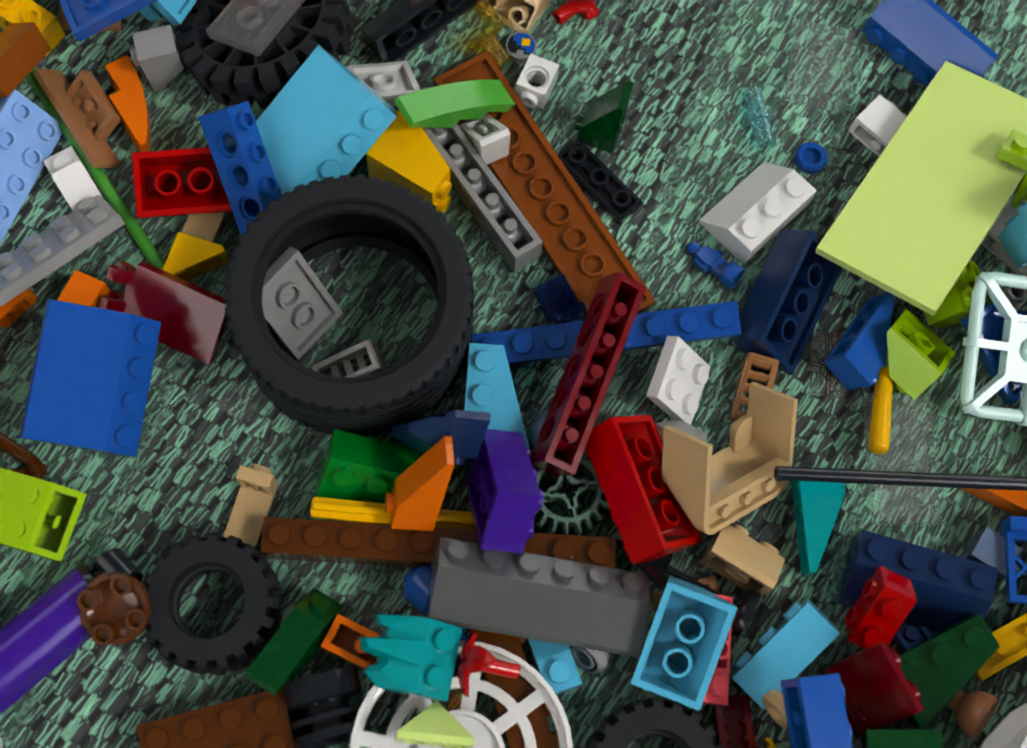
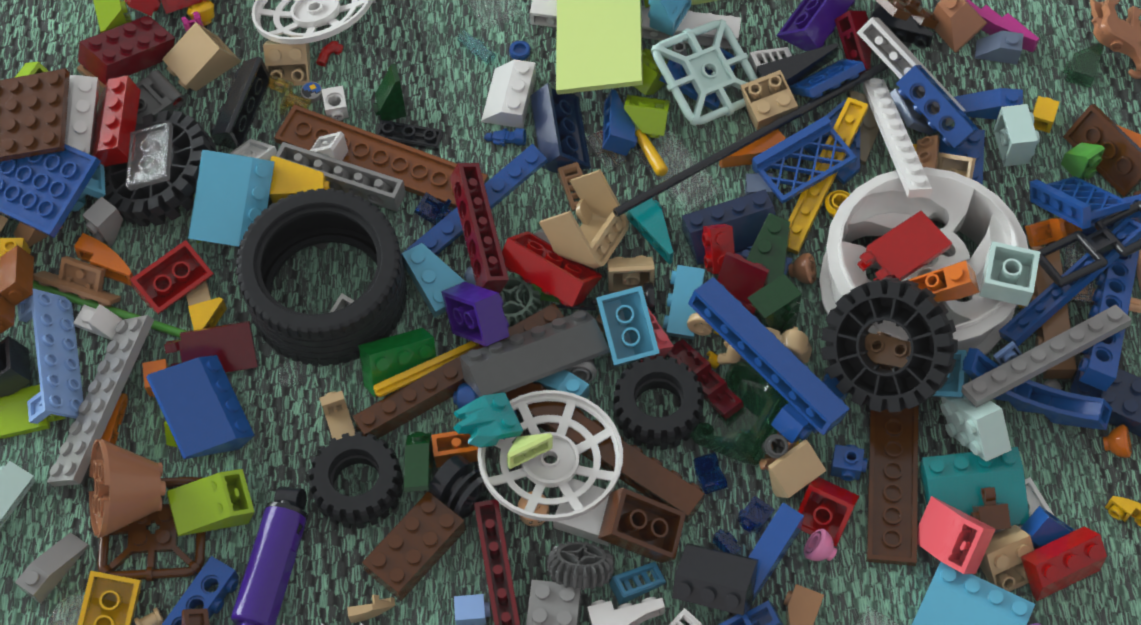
camera: 25 degrees left, 10 degrees down
(114, 608) = (305, 507): reddish brown dish -> none
(240, 161) = (194, 245): blue brick -> none
(296, 303) = (287, 289): light grey plate -> none
(421, 489) = (431, 337): orange slope -> none
(451, 102) = (299, 137): bright green slope -> none
(465, 427) = (424, 304): dark blue wedge -> none
(479, 659) = (524, 398): red plant -> none
(678, 380) = (529, 203): white plate -> none

